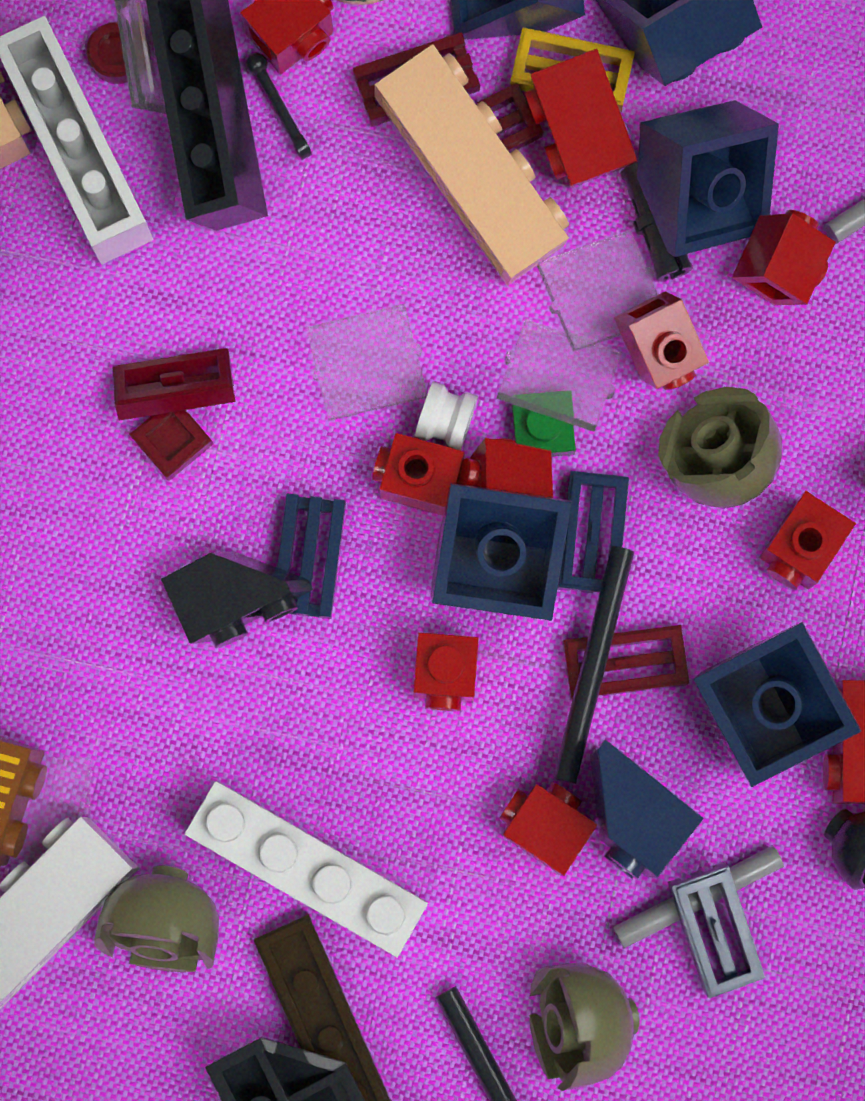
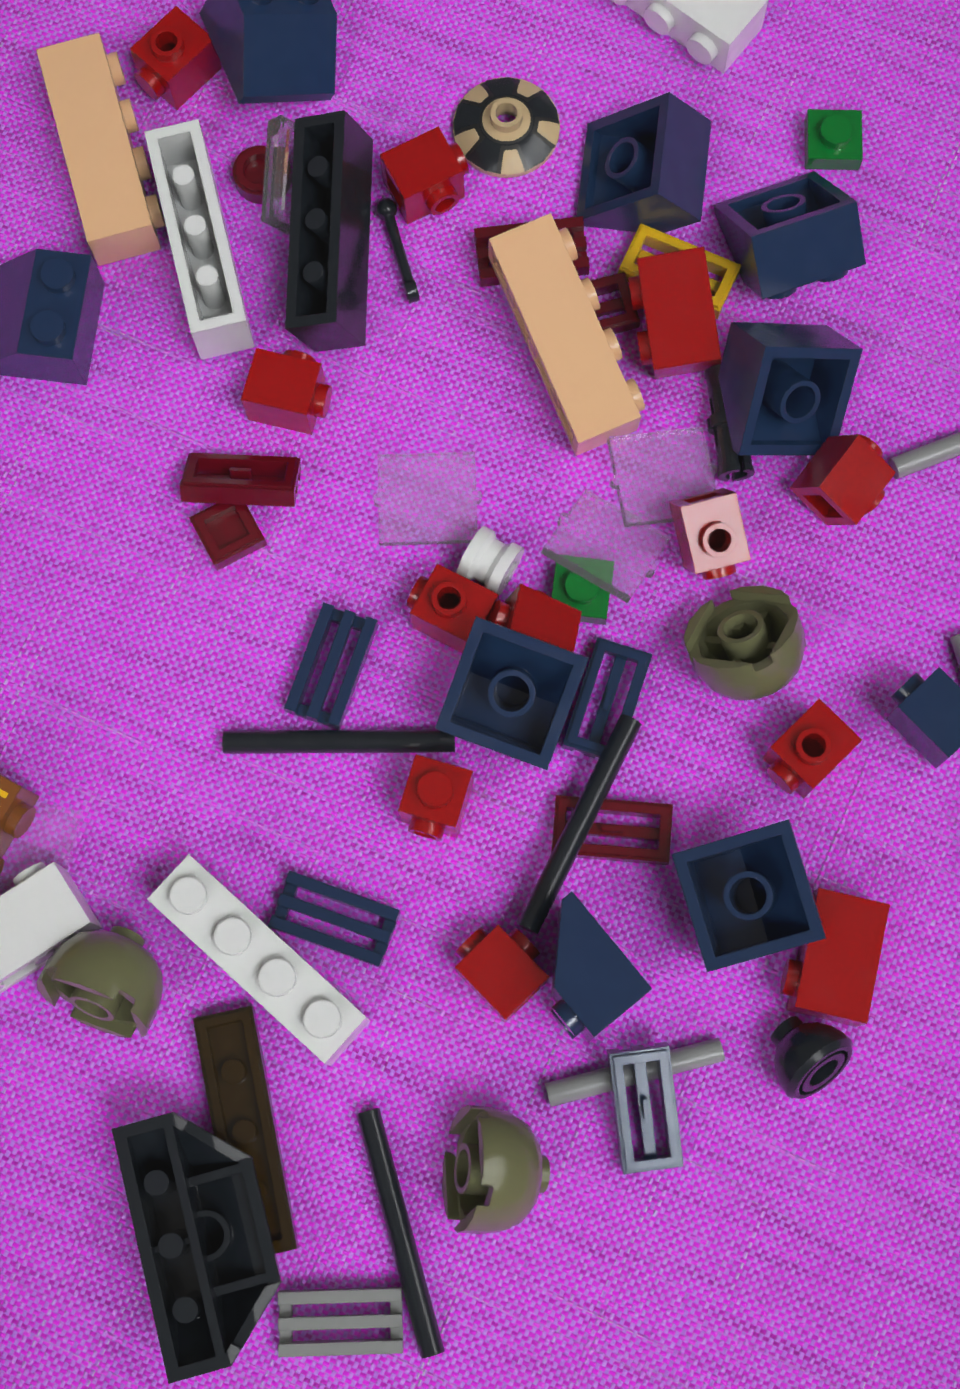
camera: 15 degrees right, 5 degrees down
(199, 280) = (286, 390): none -> red brick
(227, 592) = (243, 681): black slope -> none
(320, 803) = (288, 902): none -> dark blue tile
(332, 632) = (337, 741): none -> black bar

